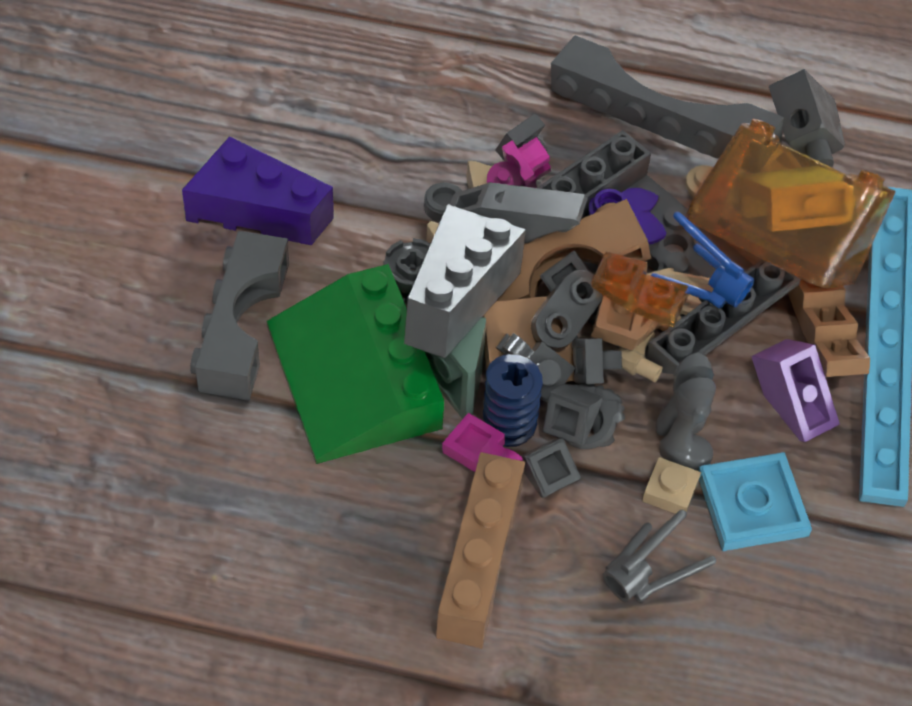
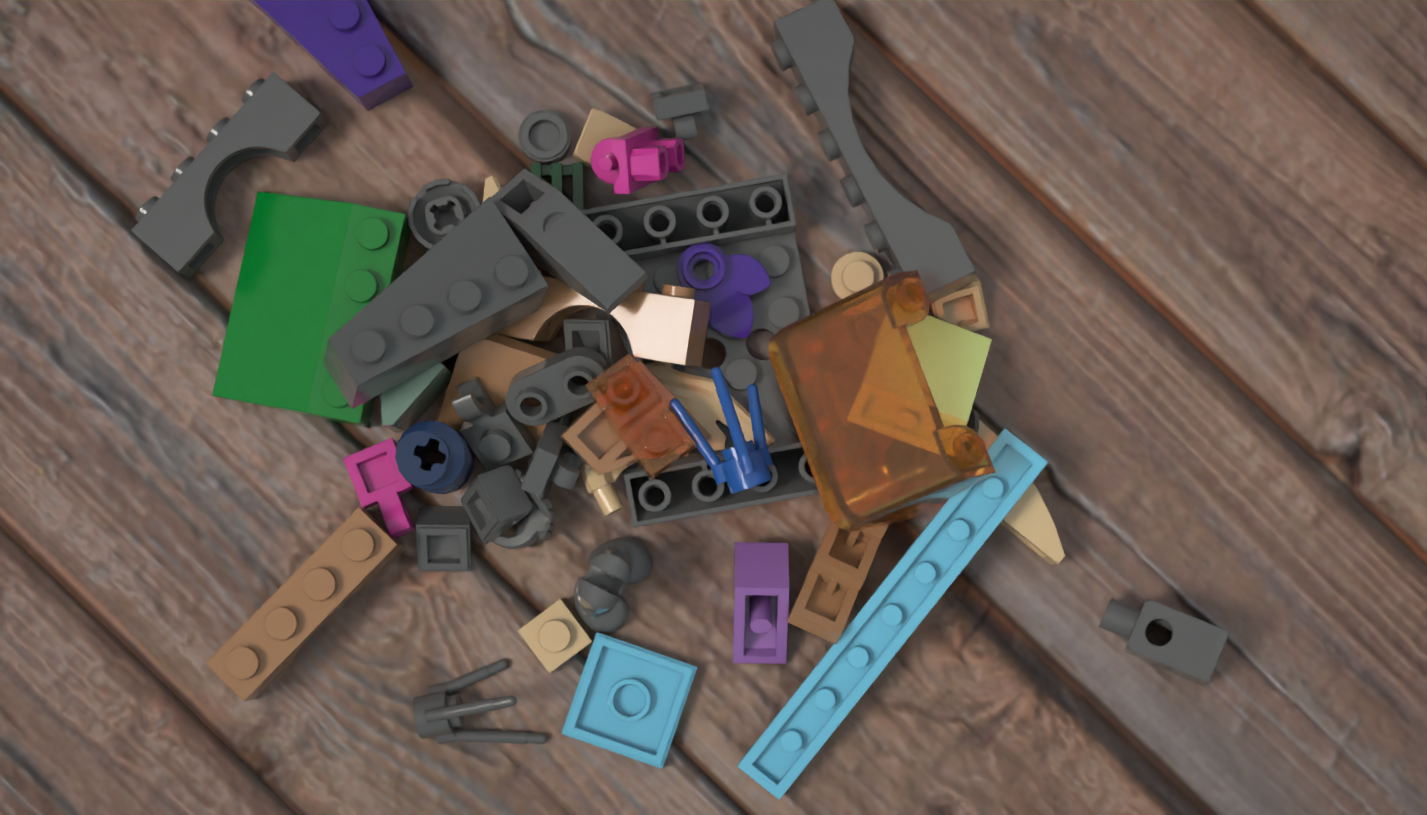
camera: 30 degrees right, 30 degrees up
(809, 116) = (1022, 275): dark grey torso -> none

